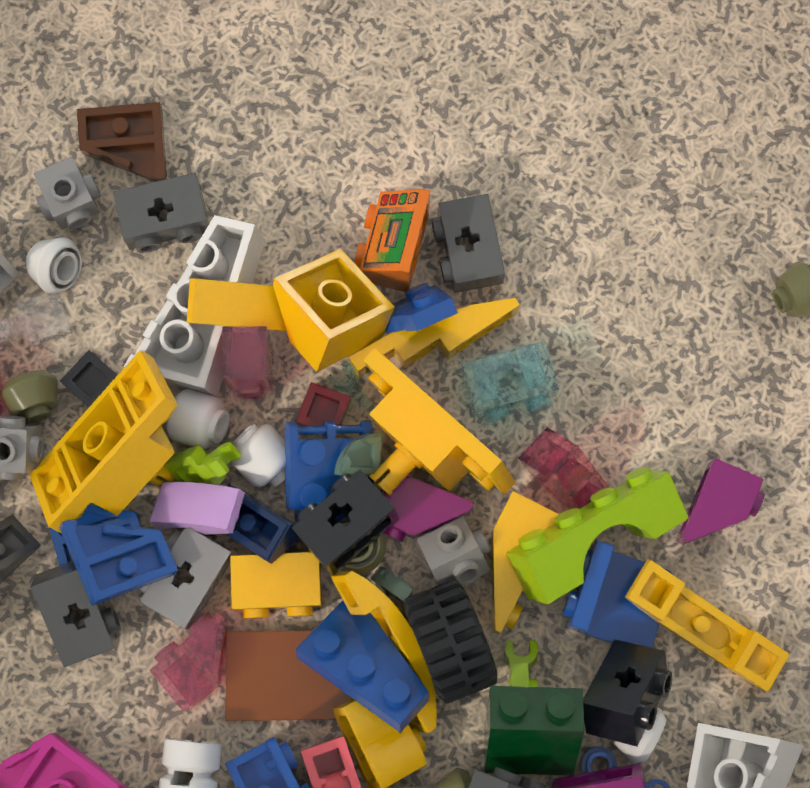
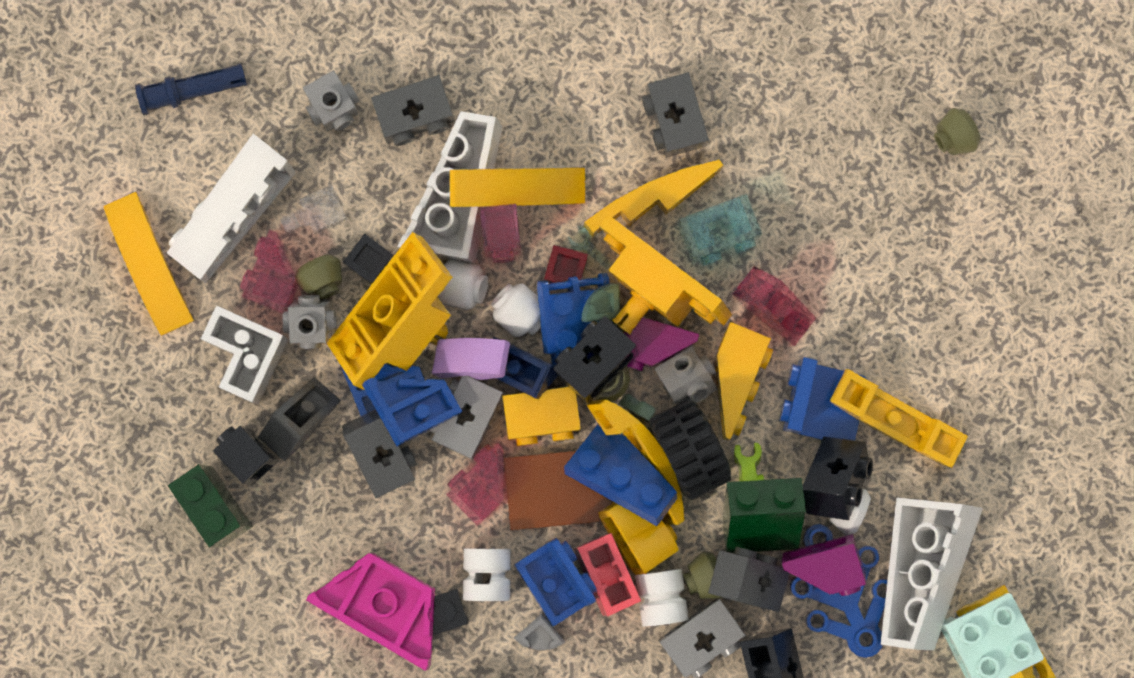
camera: 10 degrees left, 5 degrees up
(54, 264) = (326, 162): white cone -> none
(125, 138) = (374, 48): reddish brown wing -> none
(200, 467) = (467, 324): lime plate -> none
(331, 309) = (567, 183): yellow slope -> none
(394, 237) = (612, 117): orange slope -> none
(421, 309) = (635, 179): blue wing -> none
(553, 558) = (768, 375): lime arch -> none
(721, 501) = (903, 315): magenta slope -> none

